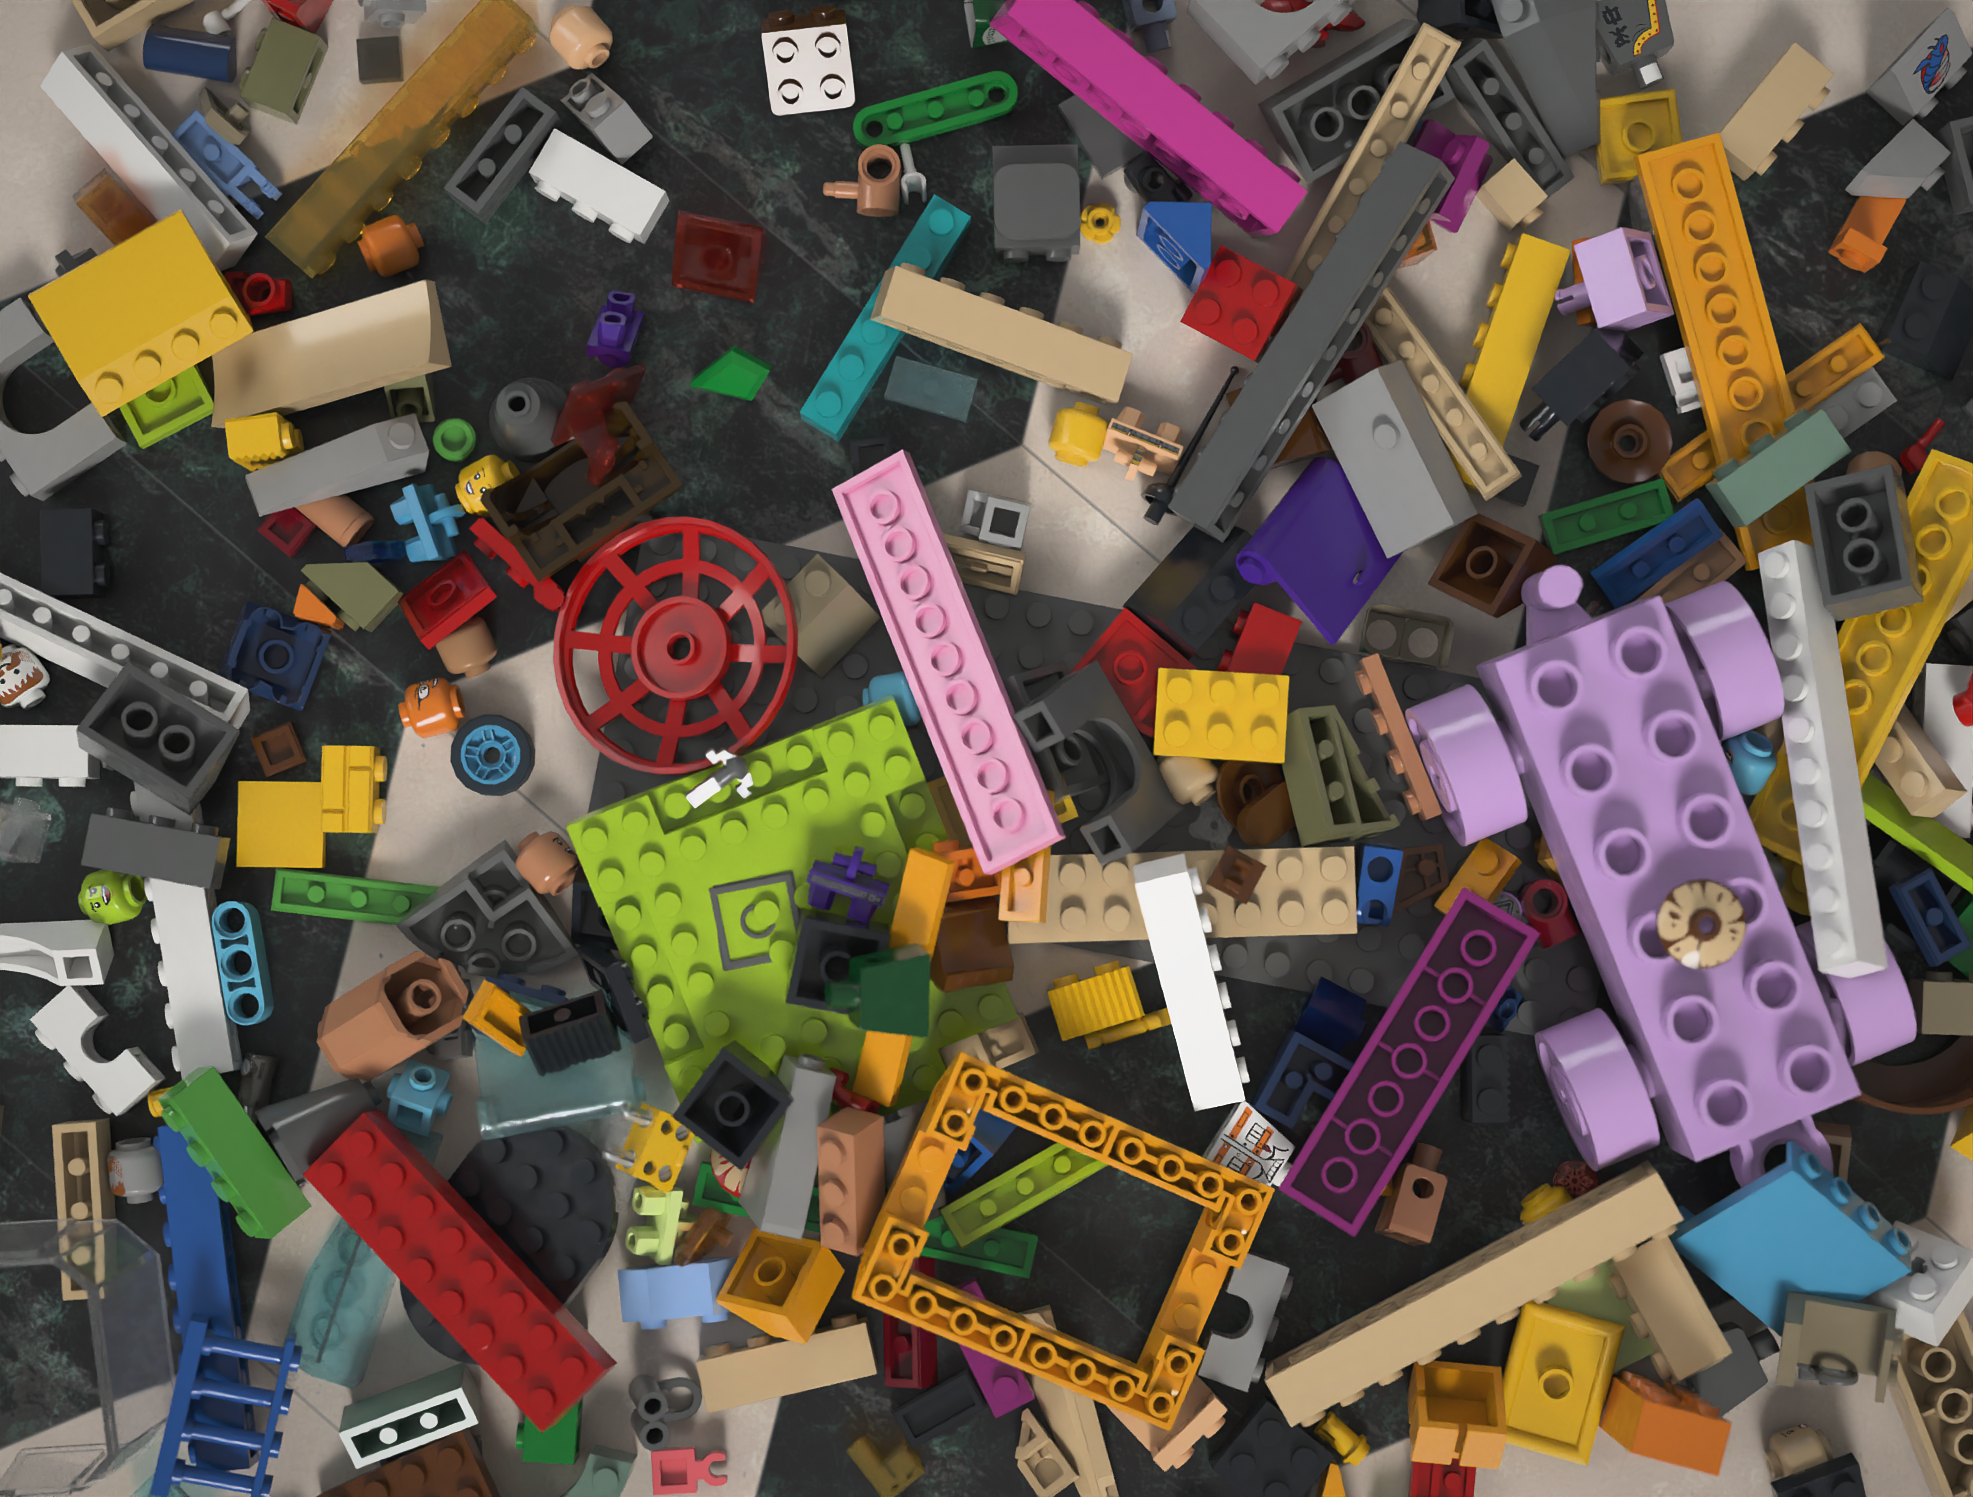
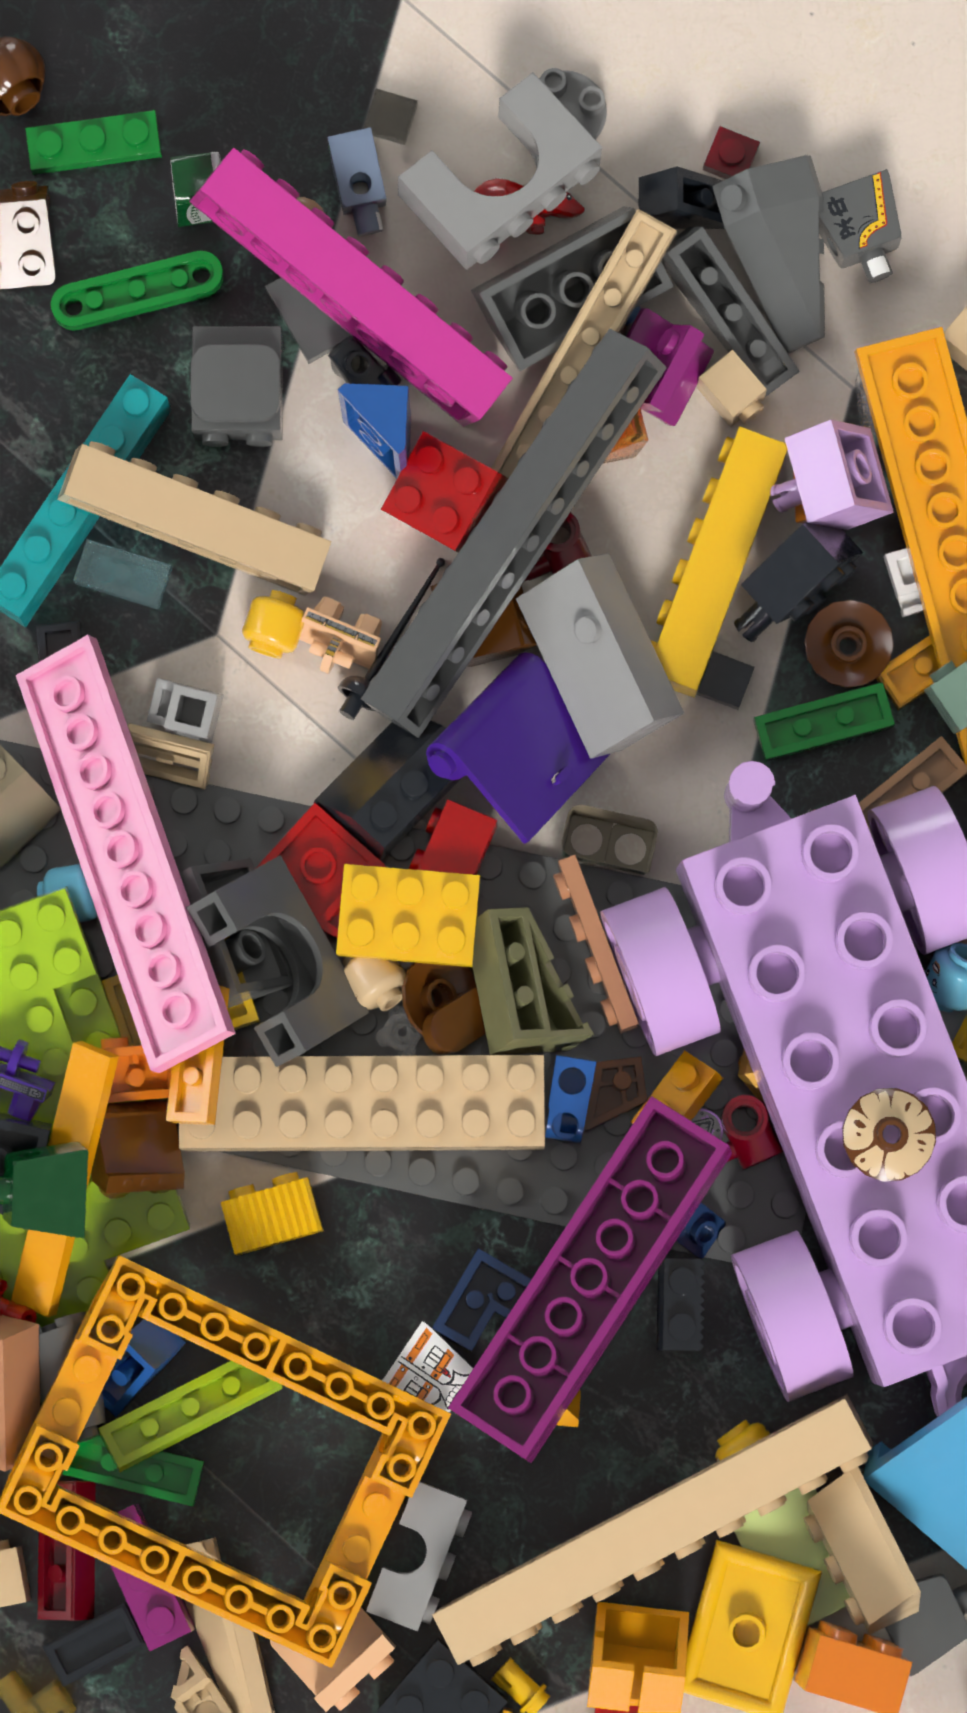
camera: 10 degrees right, 5 degrees down
(873, 195) = (69, 375): nougat piece -> none
(912, 179) = (110, 360): white hand -> none
(996, 1046) = (174, 1256): tan slope -> none
(1104, 233) = (308, 418): yellow plate -> none
(1128, 1029) = (307, 1245): yellow wheel -> none
(1189, 981) = (367, 1193): white brick -> none
(1236, 874) = (417, 1080): reddish brown tile -> none
(1331, 1016) = (519, 1235): clear blue brick -> none
(1406, 1215) = (595, 1446): nougat torso -> none
(1445, 401) = (649, 590): tan tile -> none
(1489, 565) = (693, 767): reddish brown slope -> none
(1575, 1177) = (775, 1413): clear red tile -> none
(1633, 127) = (860, 319): yellow plate -> none
(1656, 553) = (875, 758): blue plate -> none

